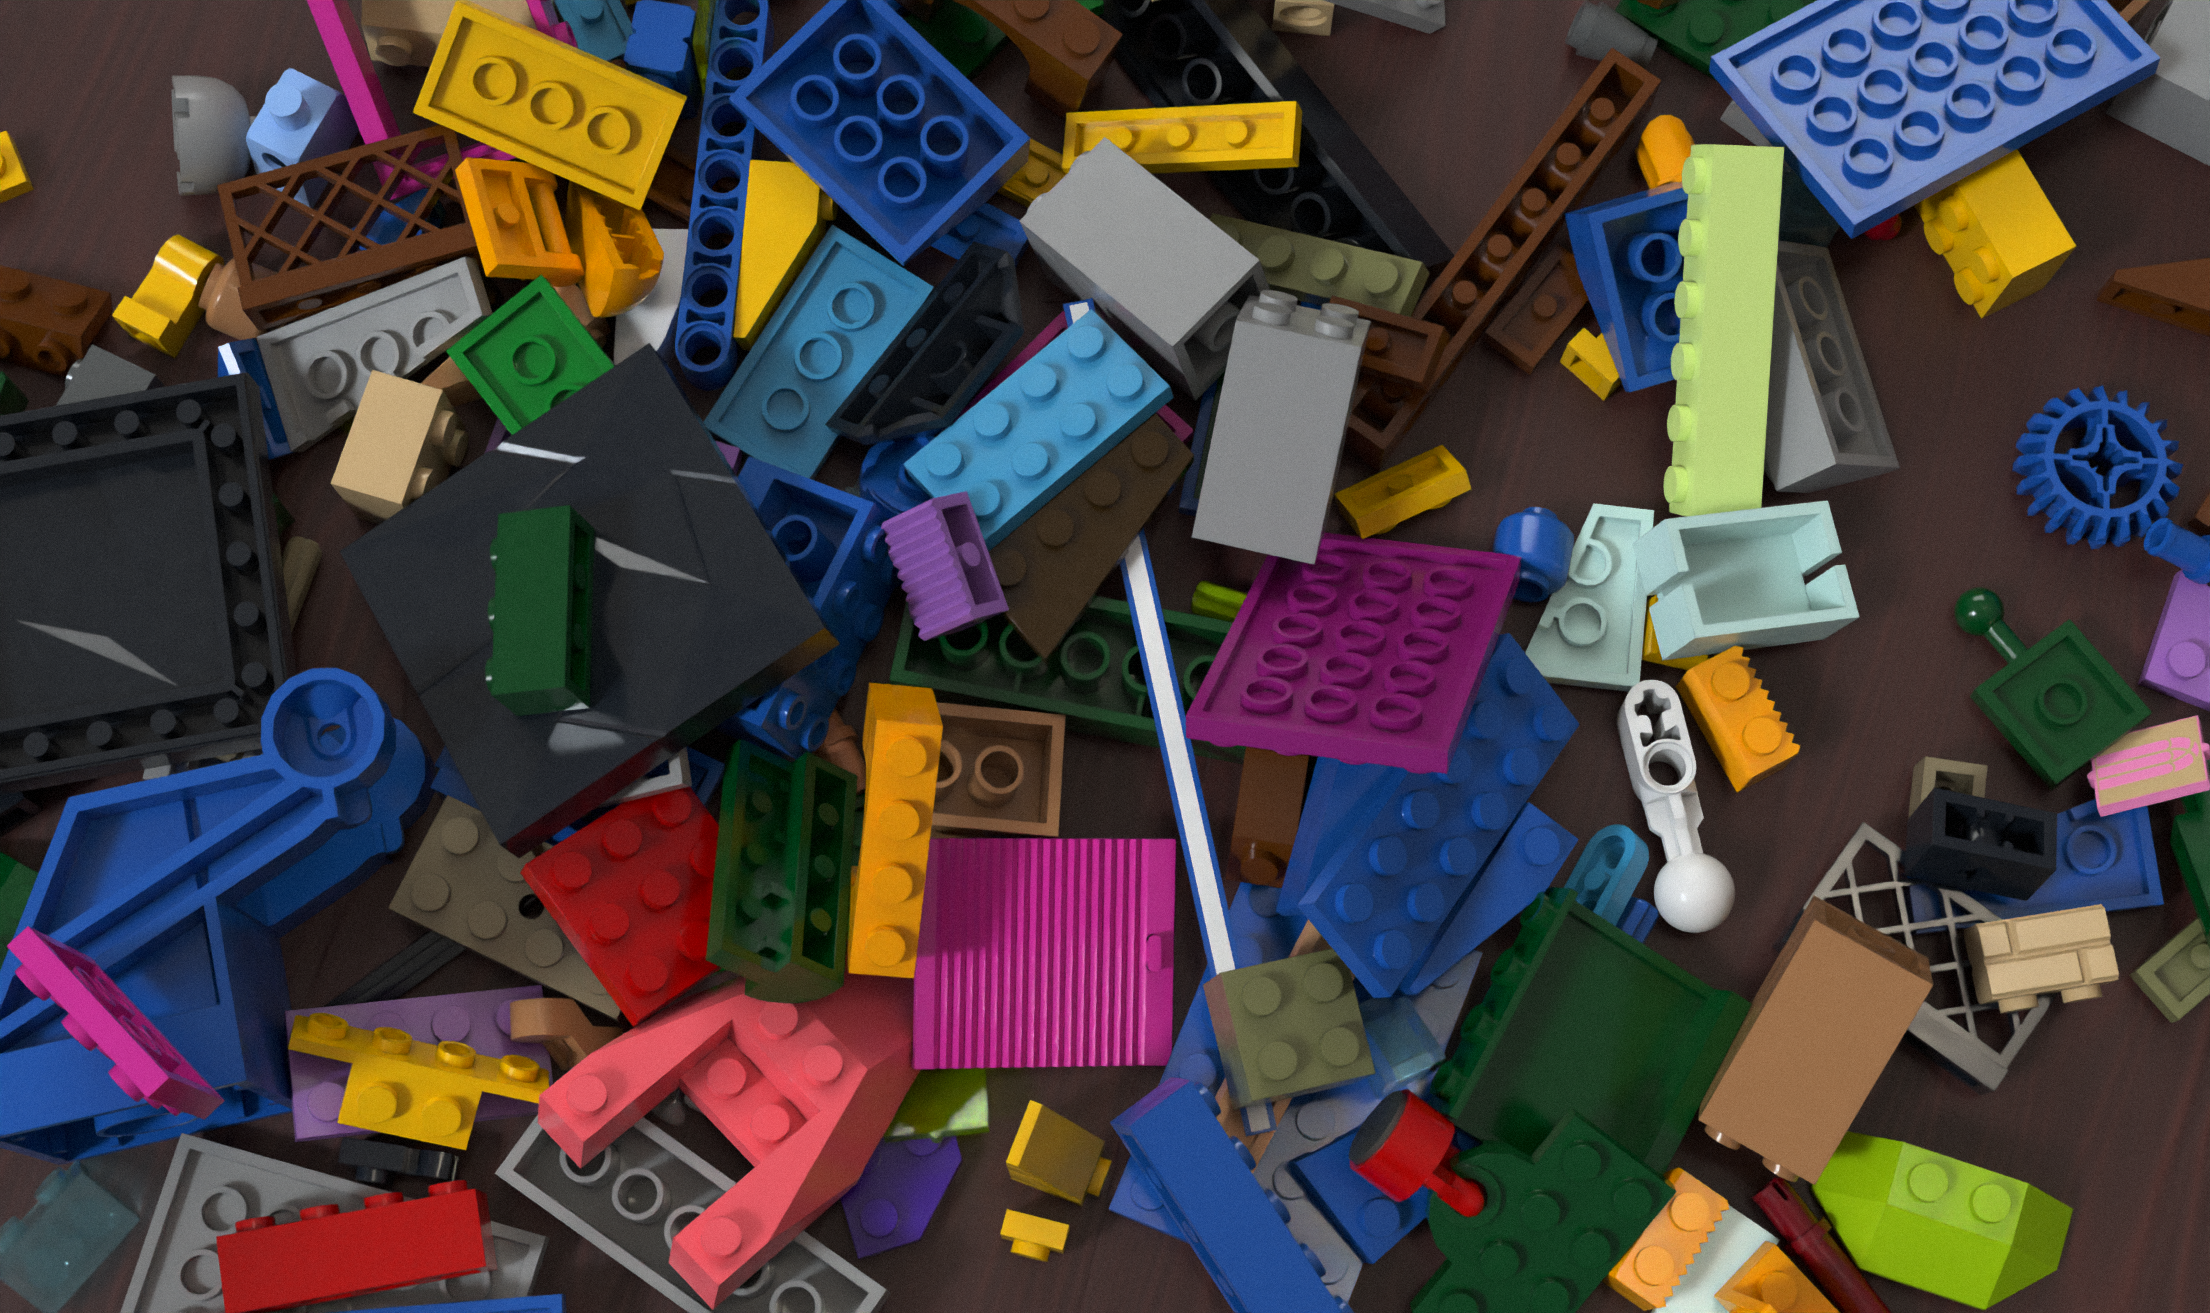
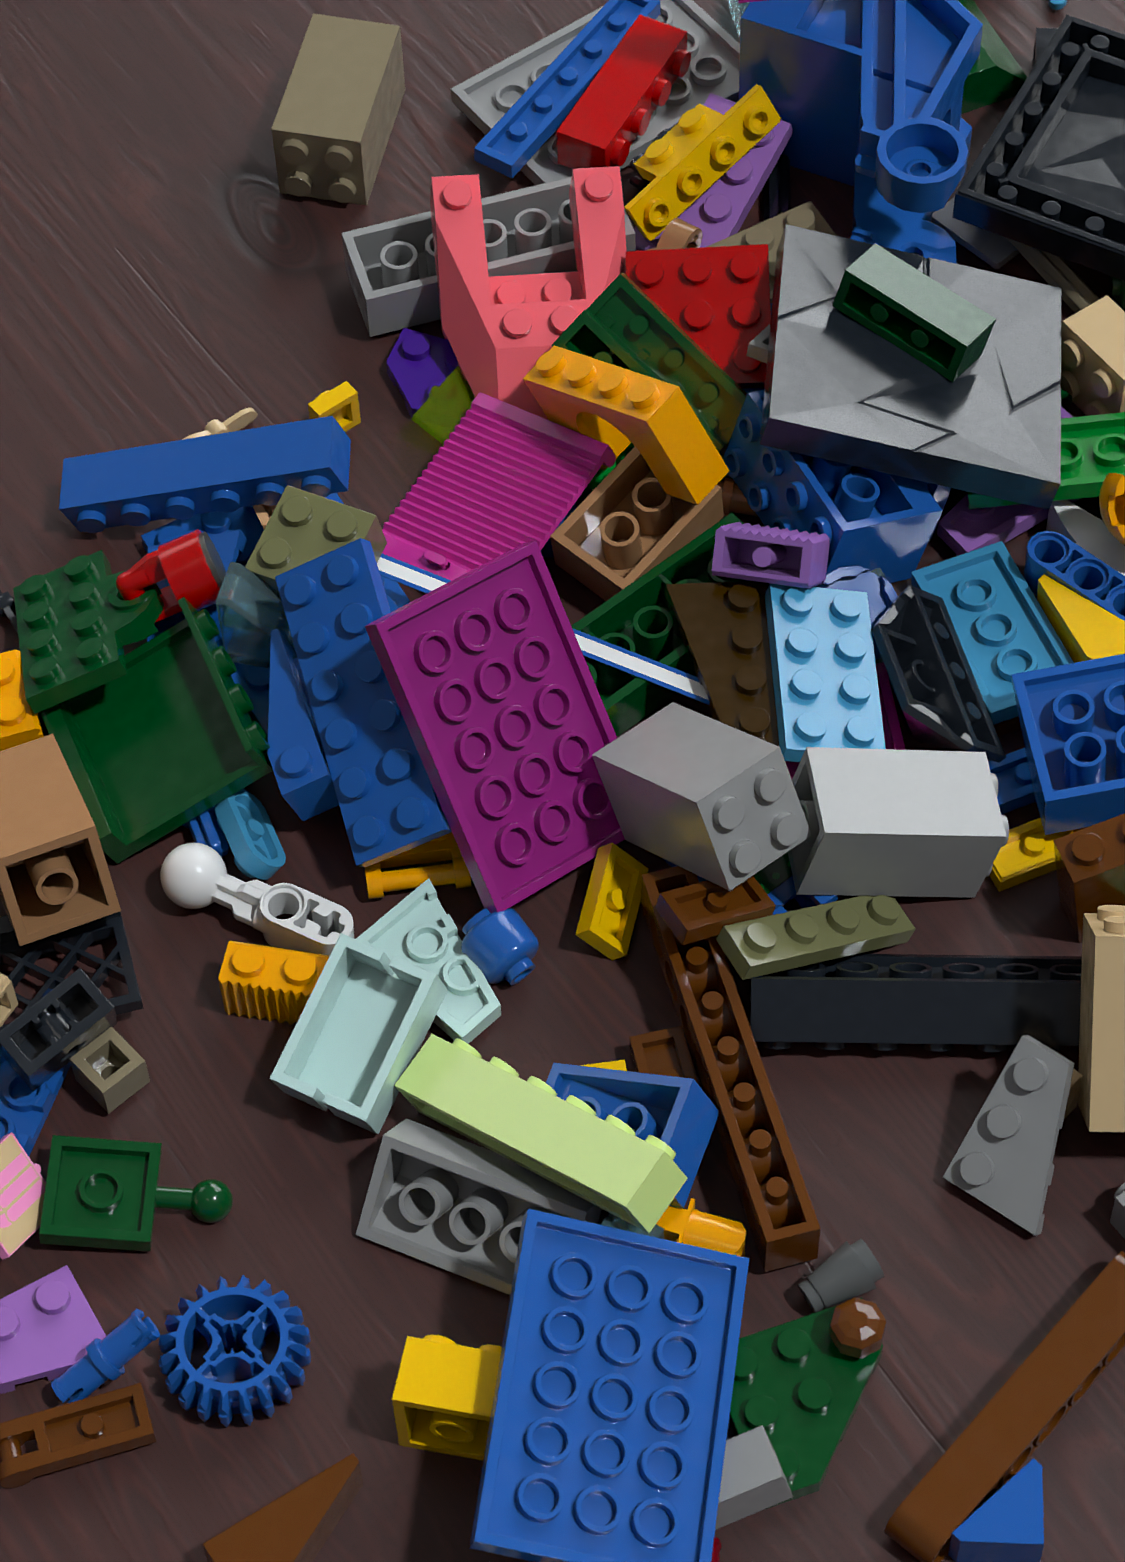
camera: 130 degrees right, 20 degrees down
(1057, 1156) = (370, 419): yellow slope -> none
(1192, 136) = (975, 914): yellow plate -> none

